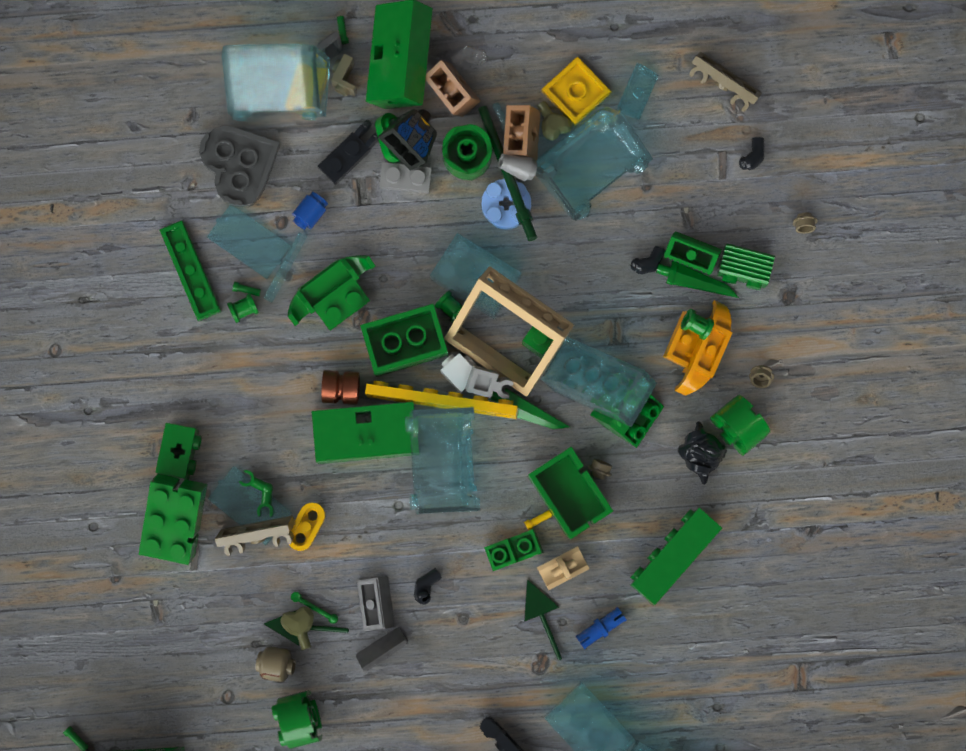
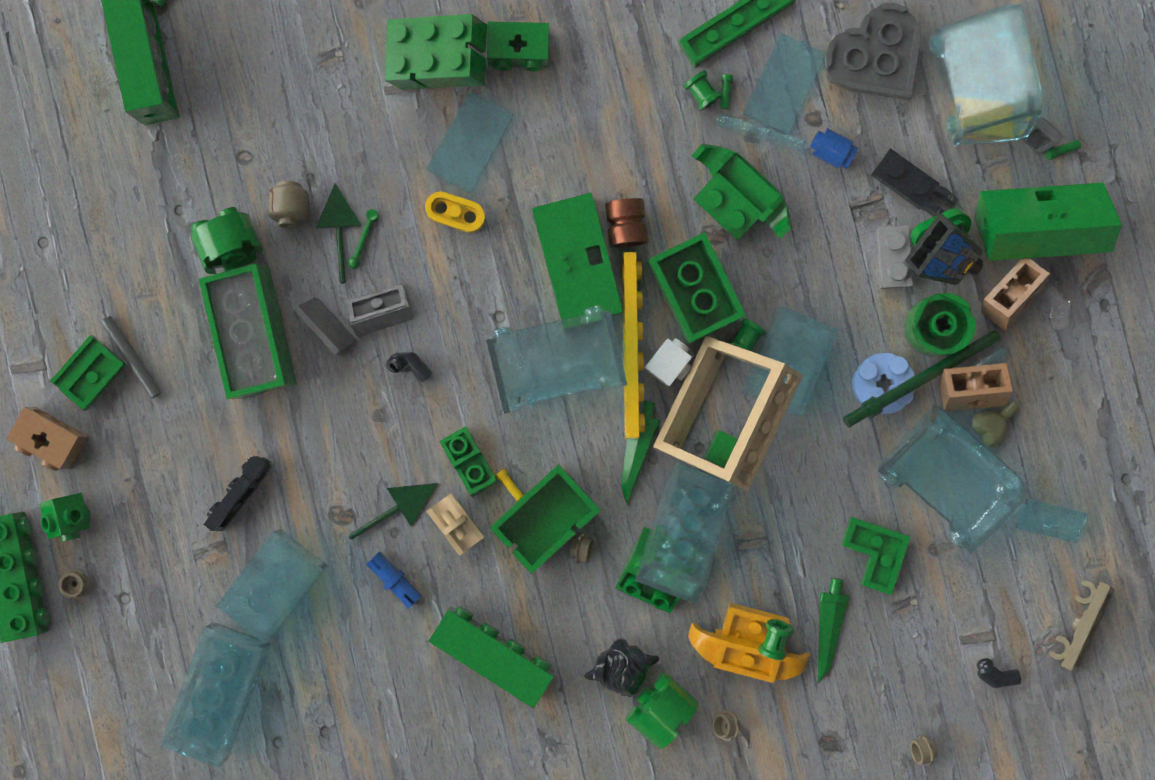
camera: 80 degrees right, 5 degrees up
(255, 533) = (436, 153): dark tan plate -> none
(266, 489) = (489, 158): green arm -> none
(299, 624) = (339, 224): olive rock -> none
(342, 70) = (1012, 157): dark tan bracket -> none
(375, 715) = (247, 331): none -> brick
(485, 381) = (661, 393): light grey plate -> none
(518, 166) = (933, 391): light grey cone -> none
(576, 91) = (1038, 445): yellow tile -> none
(638, 226) = (885, 553): none -> green plate
(648, 264) = (839, 567): black arm -> none
(692, 252) = (862, 620): green brick -> none
(745, 266) = (857, 686): green brick -> none

